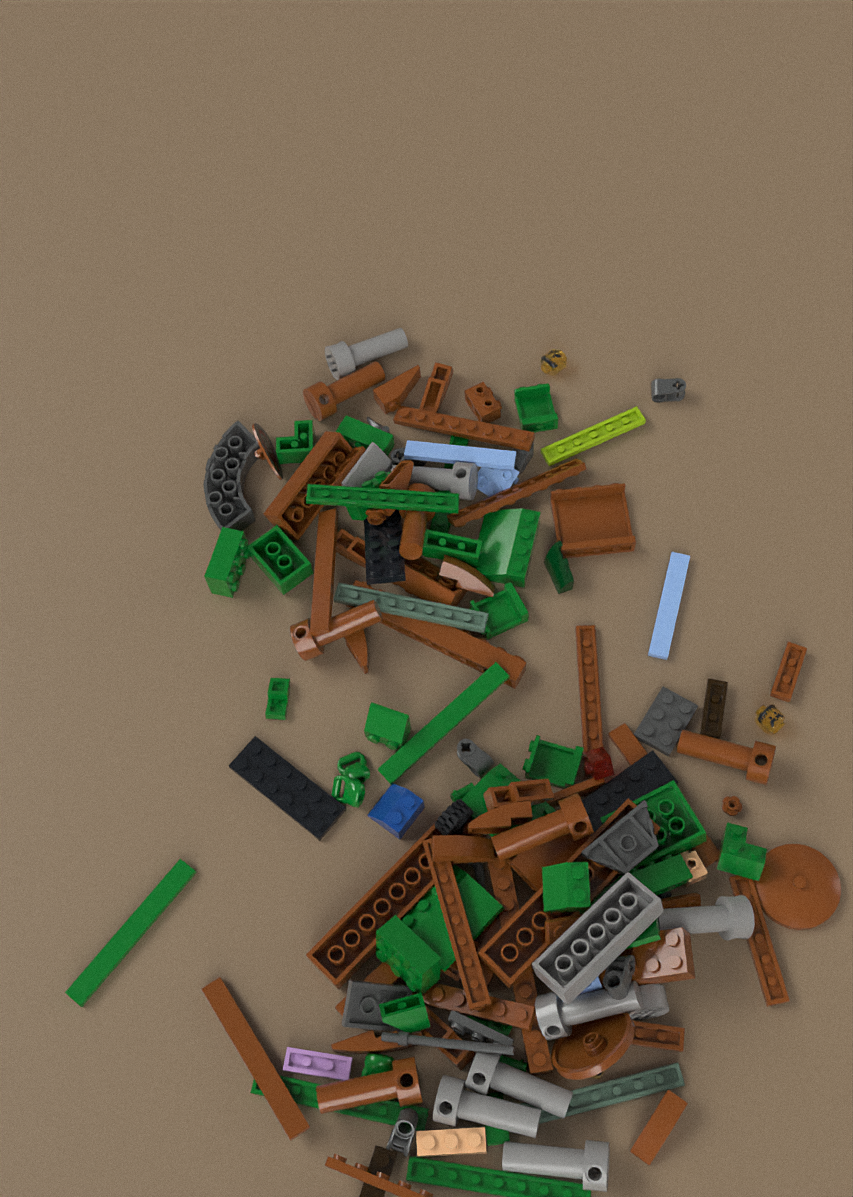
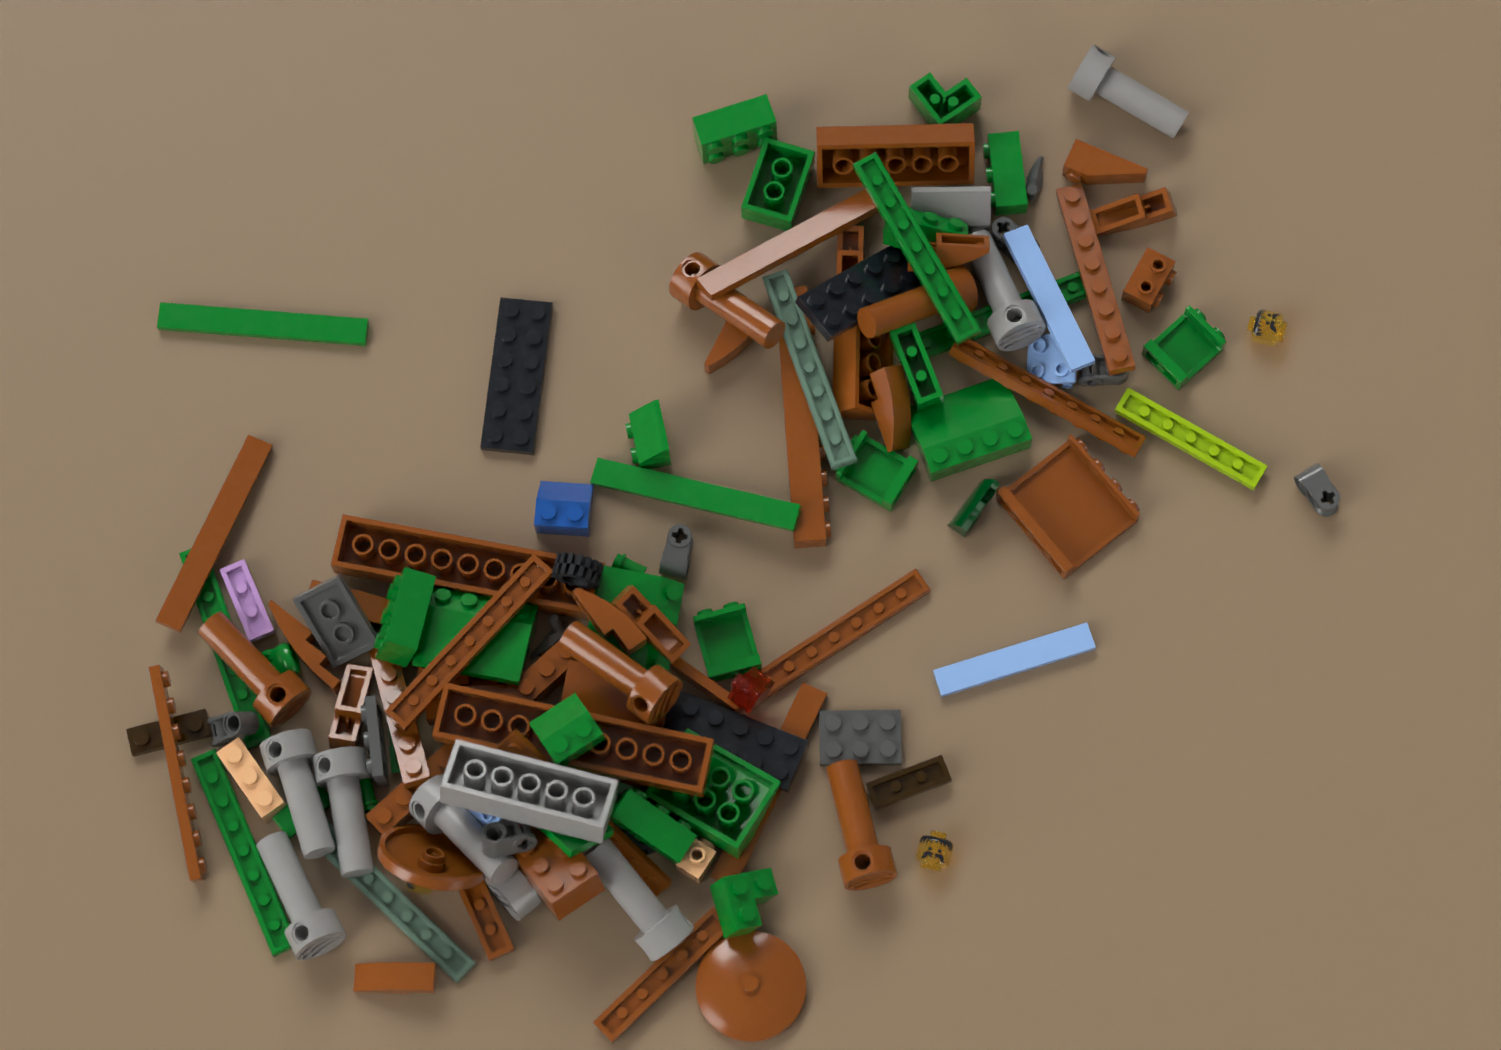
camera: 55 degrees right, 10 degrees up
(226, 478) = (845, 52): dark grey brick -> none
(266, 450) = (917, 63): shield -> none
(277, 698) = (613, 297): green slope -> none
(322, 399) = (1054, 103): dark orange piece -> none
(346, 466) = (936, 178): dark orange plate -> none
(353, 791) = (556, 447): green piece -> none
(357, 770) = (579, 438): green piece -> none
(375, 516) = (895, 255): dark orange plate -> none
(405, 1039) = (320, 669): dark grey bar -> none
(406, 1013) = (346, 653): green slope -> none
(461, 849) = (548, 597): dark orange slope -> none
(625, 842) = (658, 763): dark grey wing -> none
(732, 811) = (801, 873): dark orange plate -> none
(788, 672) = (1011, 841): dark orange plate -> none

